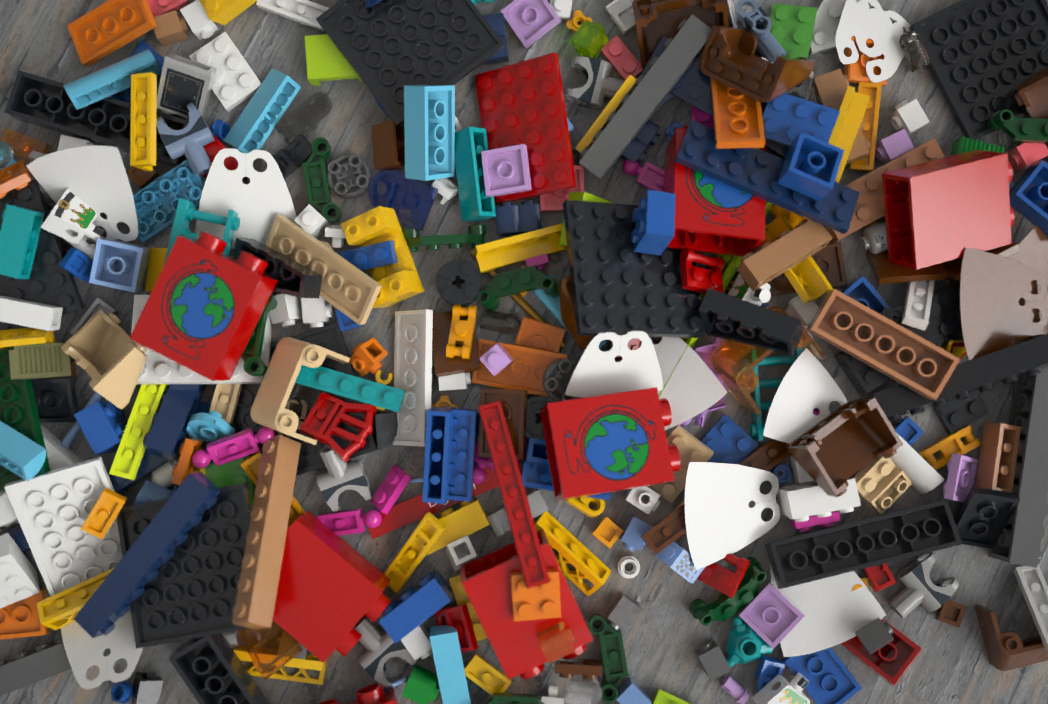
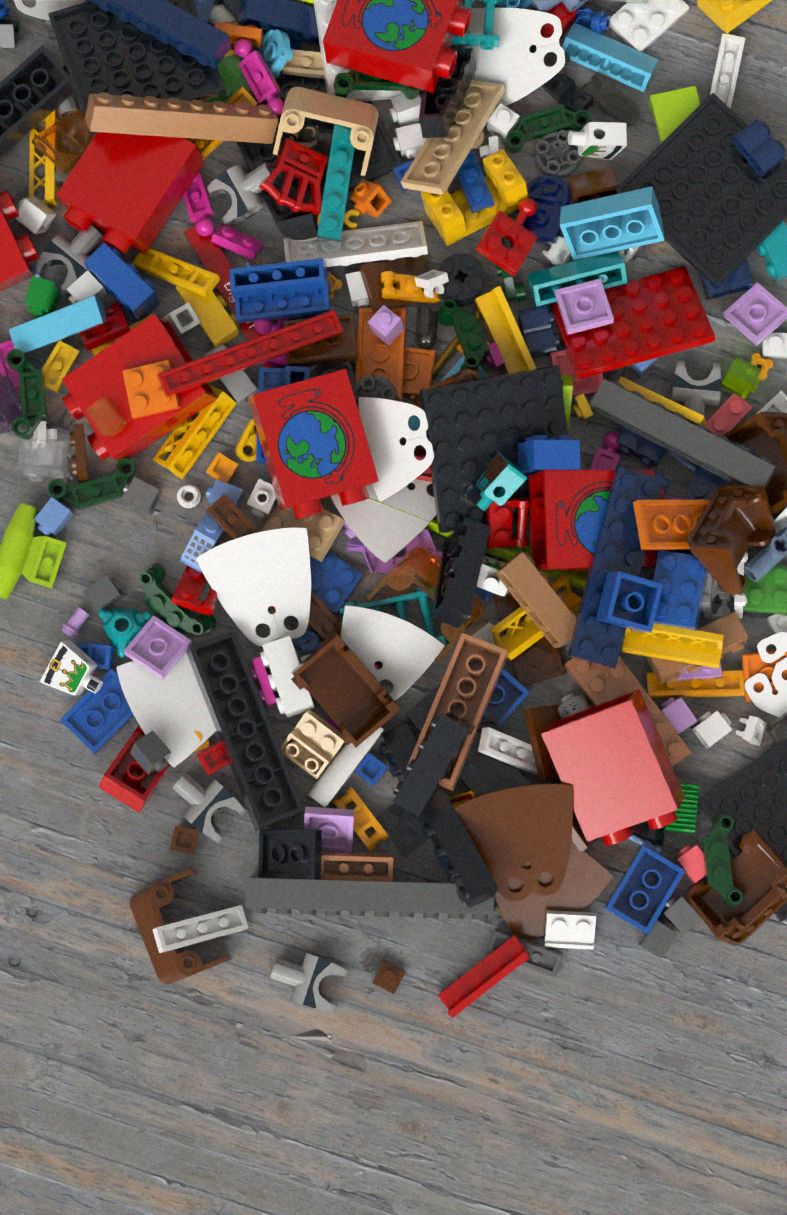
camera: 85 degrees right, 5 degrees down
(226, 115) = (600, 22): none -> blue plate
(335, 681) = (35, 214): none -> white brick
(344, 131) = (599, 139): none -> white torso
(429, 220) = (520, 238): none -> red plate
(460, 309) = (432, 280): none -> white tile
(598, 188) = (582, 408): none -> yellow plate
(671, 272) = (498, 482): none -> torso
(914, 81) = (753, 731): none -> white tile
(942, 372) = (432, 763): none -> black wedge

